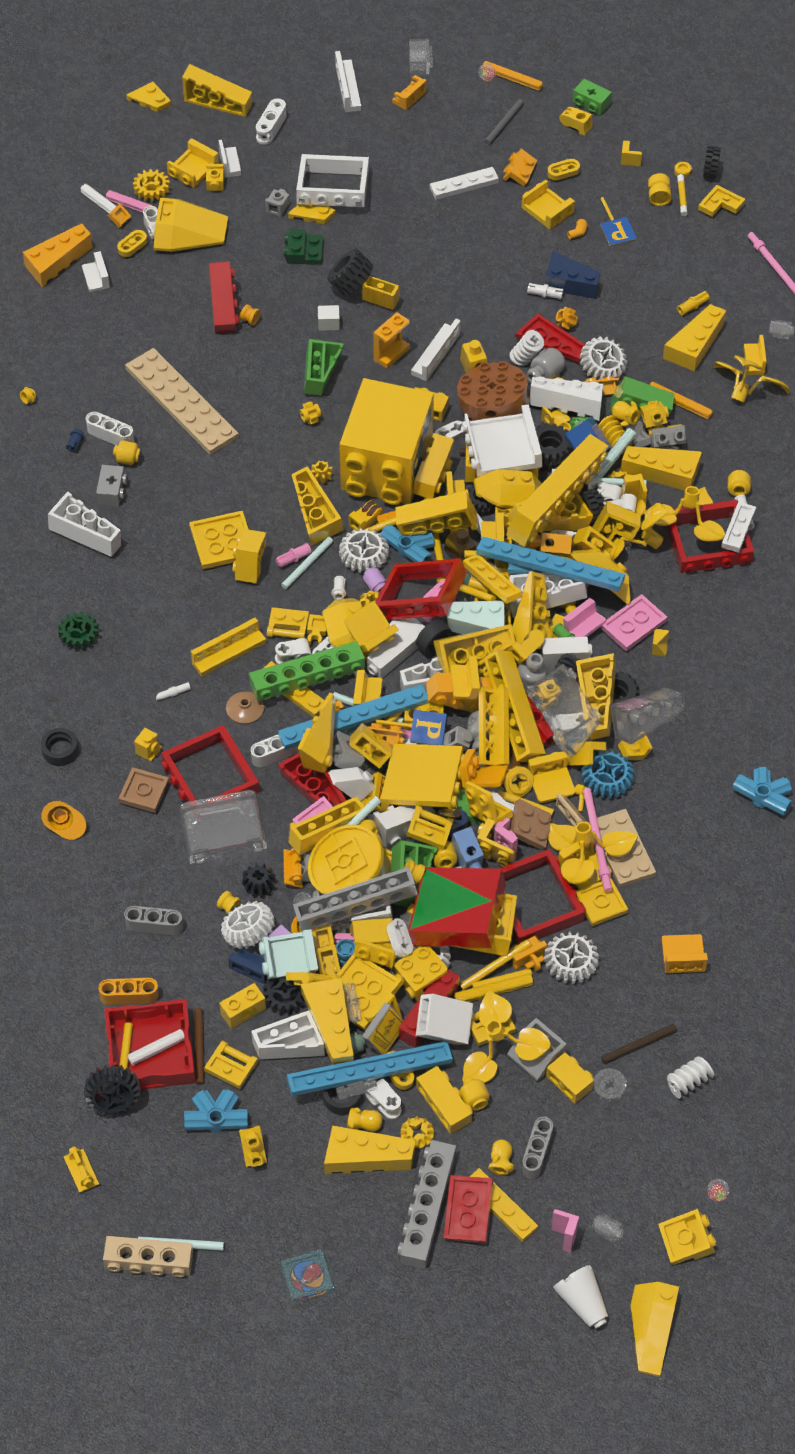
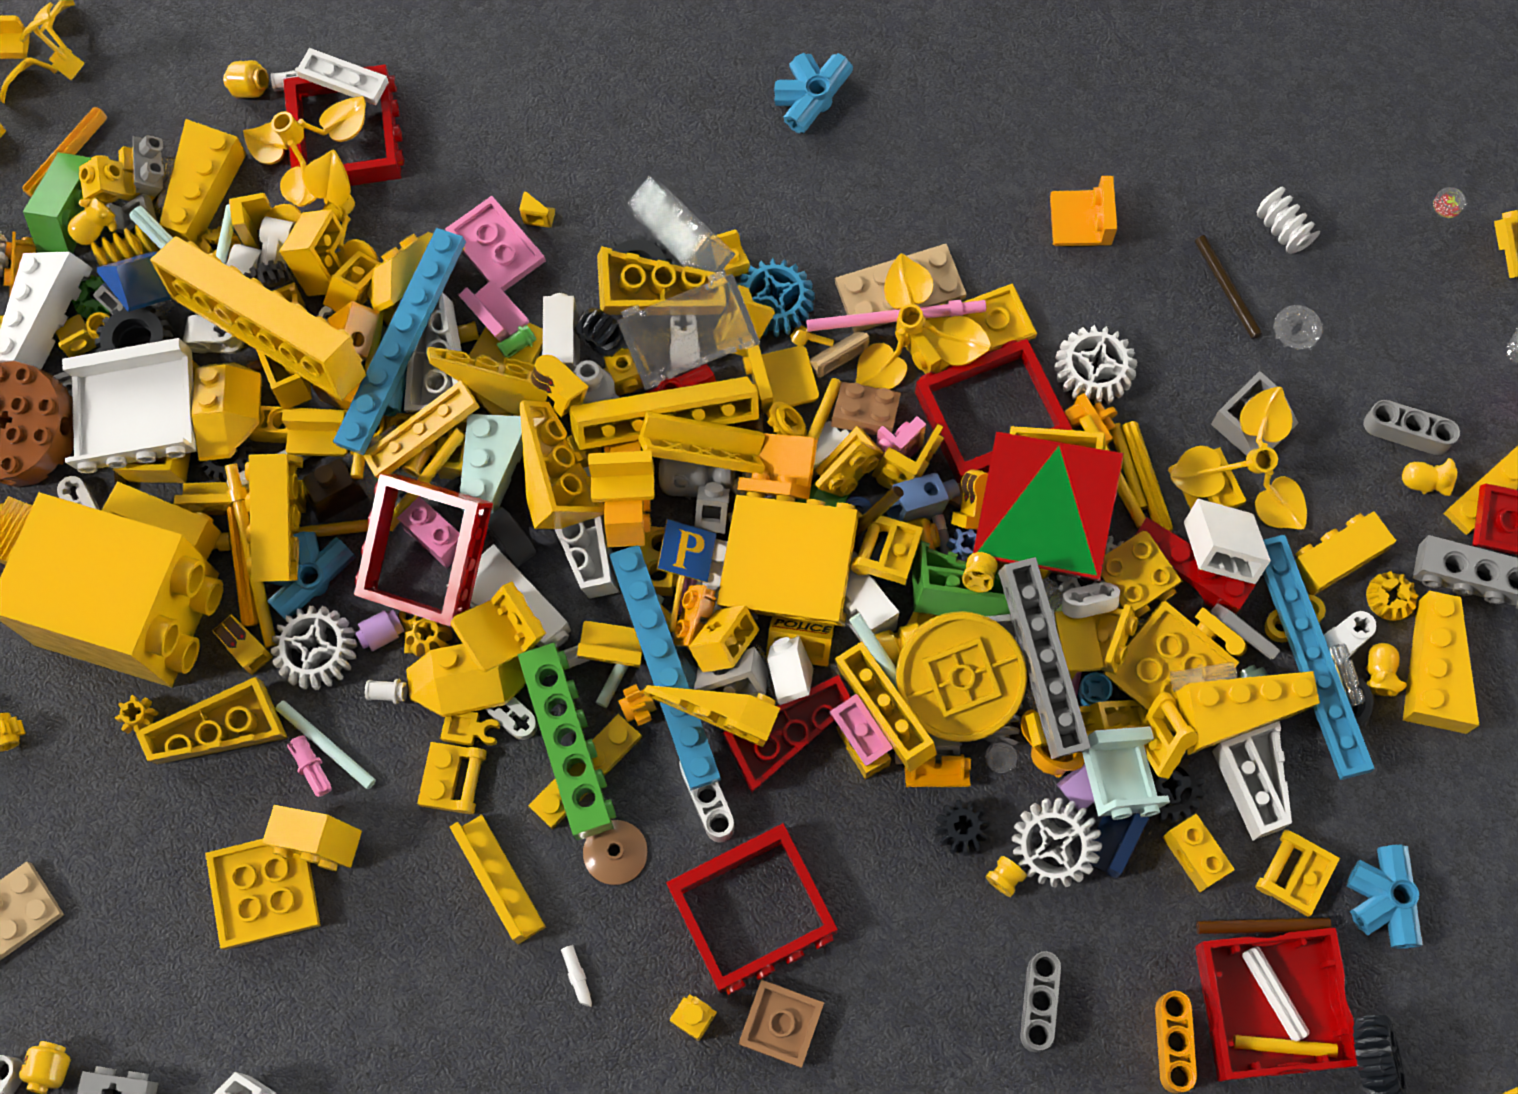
camera: 85 degrees left, 15 degrees up
(222, 824) = (869, 885): clear windscreen -> none
(252, 1146) = (1448, 836): yellow hips -> none
(292, 650) = (514, 763): white piece -> none
(474, 1093) = (1333, 508): yellow head -> none
(570, 1077) = (1300, 372): yellow brick -> none

